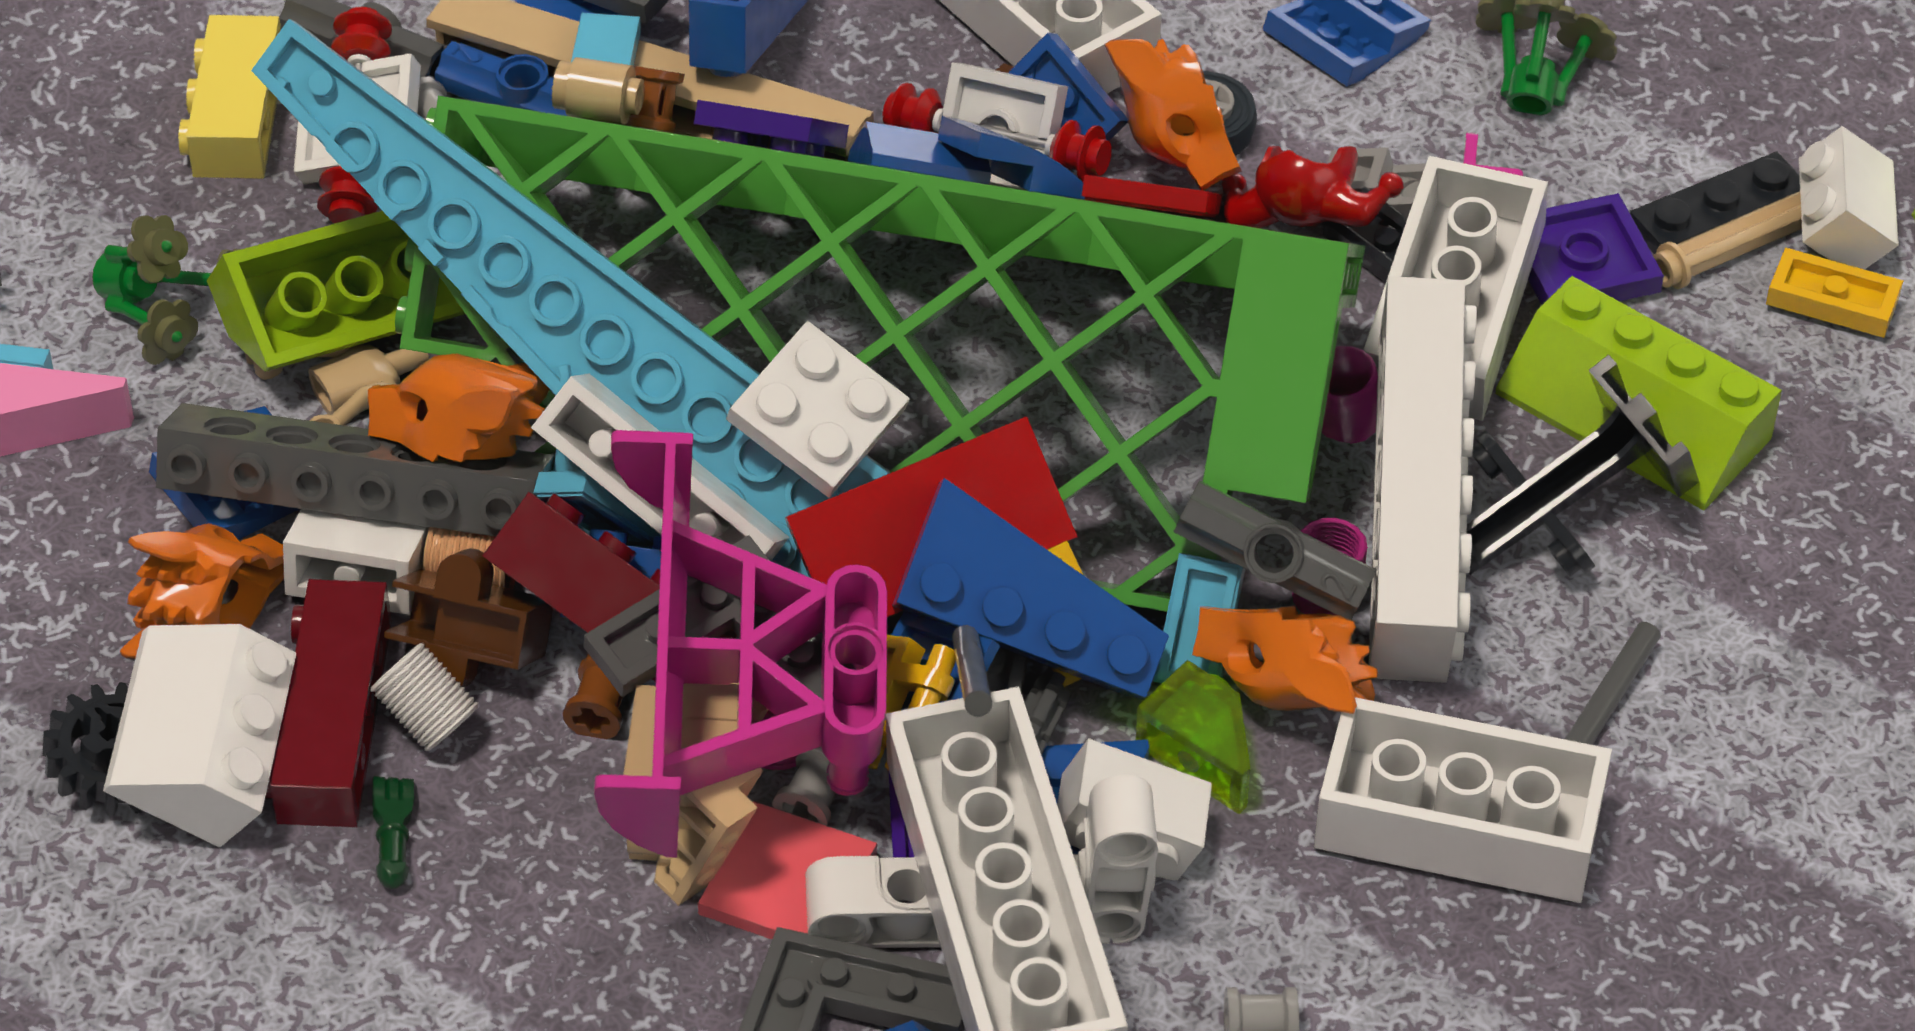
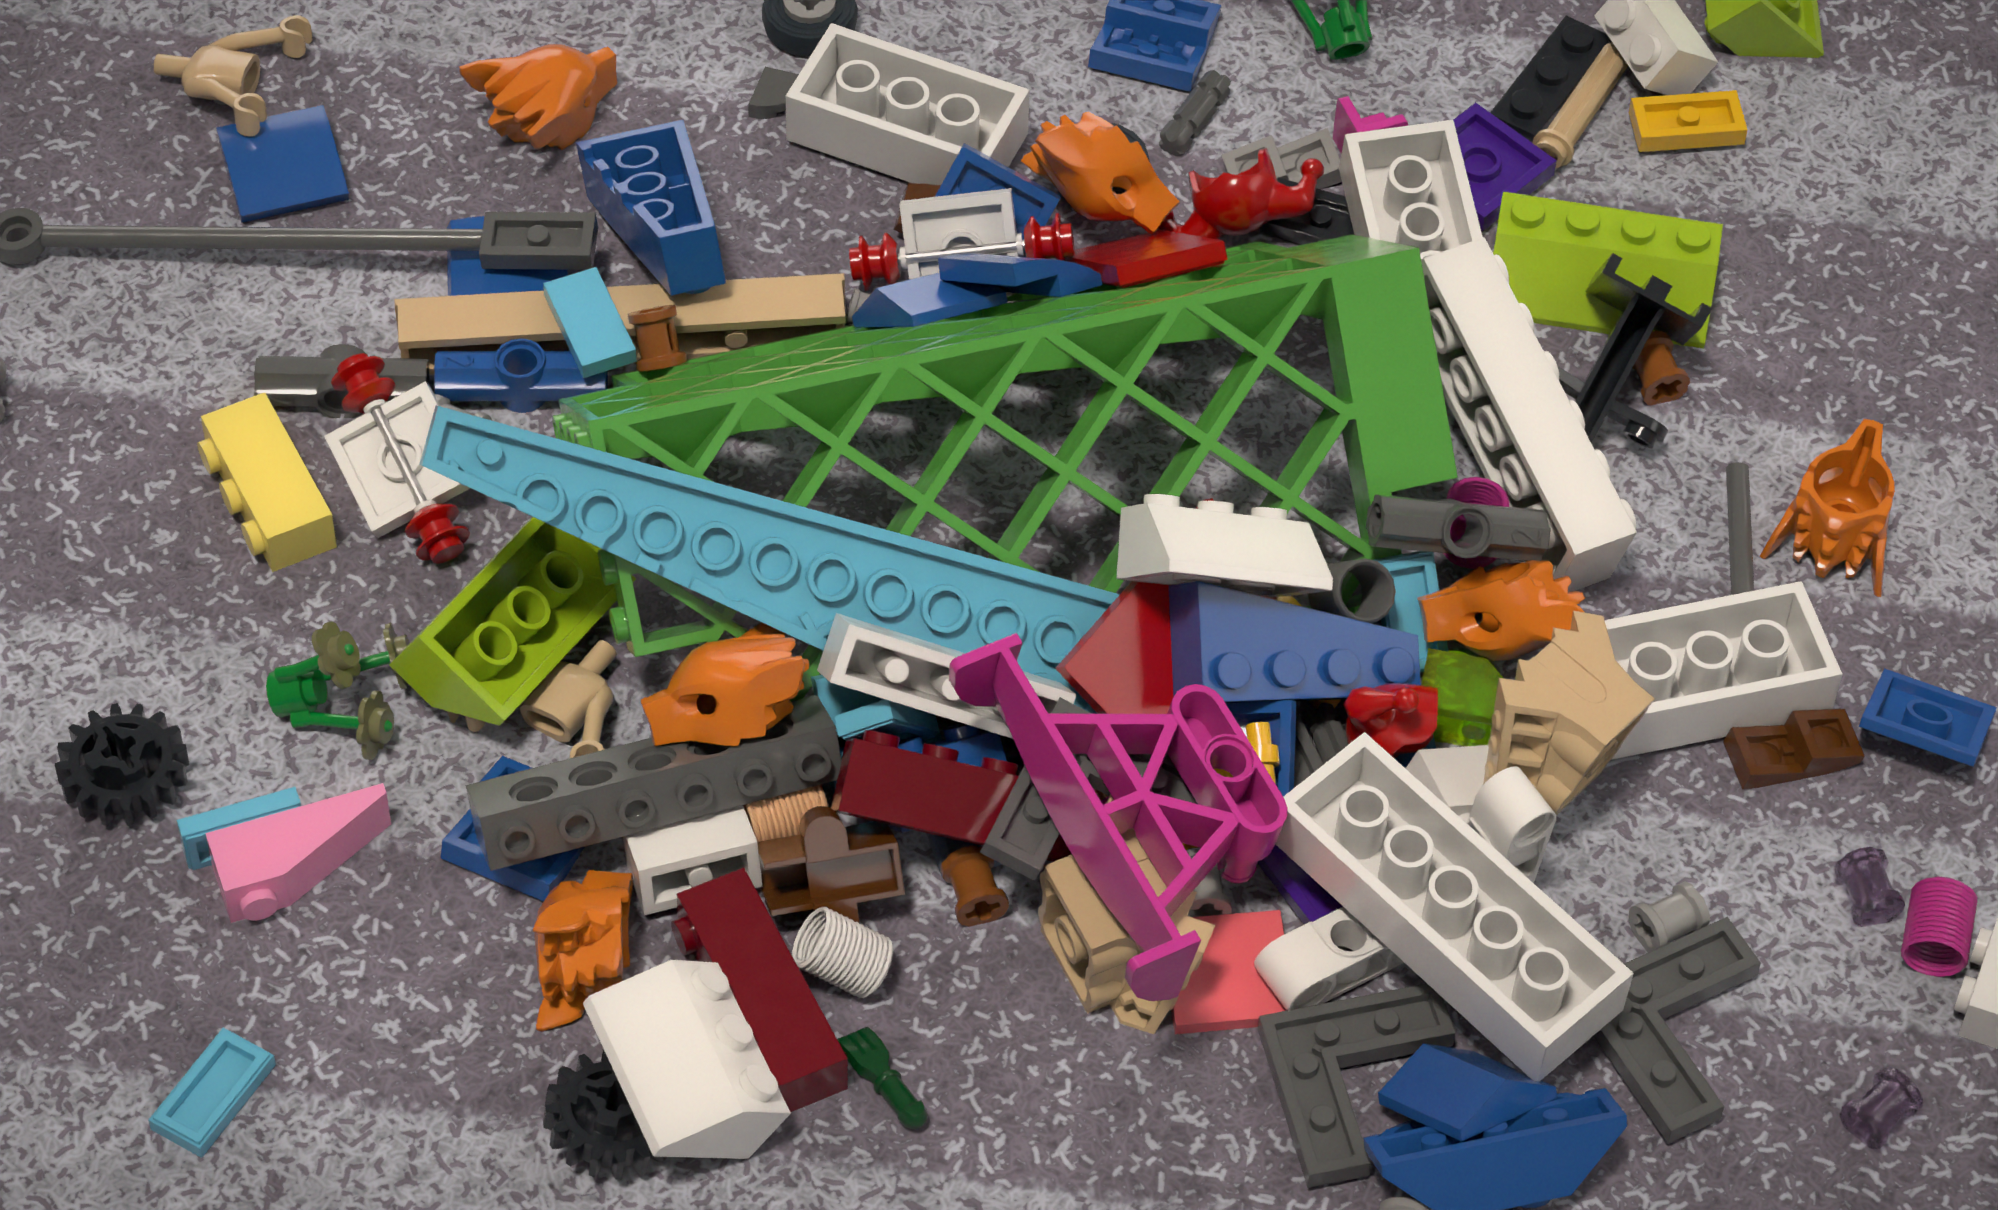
camera: 30 degrees left, 5 degrees up
(597, 90) = (621, 351): tan brick -> none
(755, 127) = (767, 328): dark purple plate -> none
(817, 409) = (1041, 563): white plate -> none
(972, 671) = (1316, 735): dark grey bar -> none
(995, 460) = (1217, 547): none -> white slope
(1085, 702) = (1393, 715): none -> red piece
(1151, 545) = (1376, 588): none -> dark grey piece
(1245, 766) = (1565, 712): none -> tan slope
(1334, 105) = (1194, 113): none -> dark grey axle
(1533, 922) = (1802, 748): none -> reddish brown slope
(1630, 505) = (1659, 372): none -> dark orange bush
(1678, 947) = (1928, 717): none -> blue slope
(1722, 714) = (1842, 508): none -> orange piece

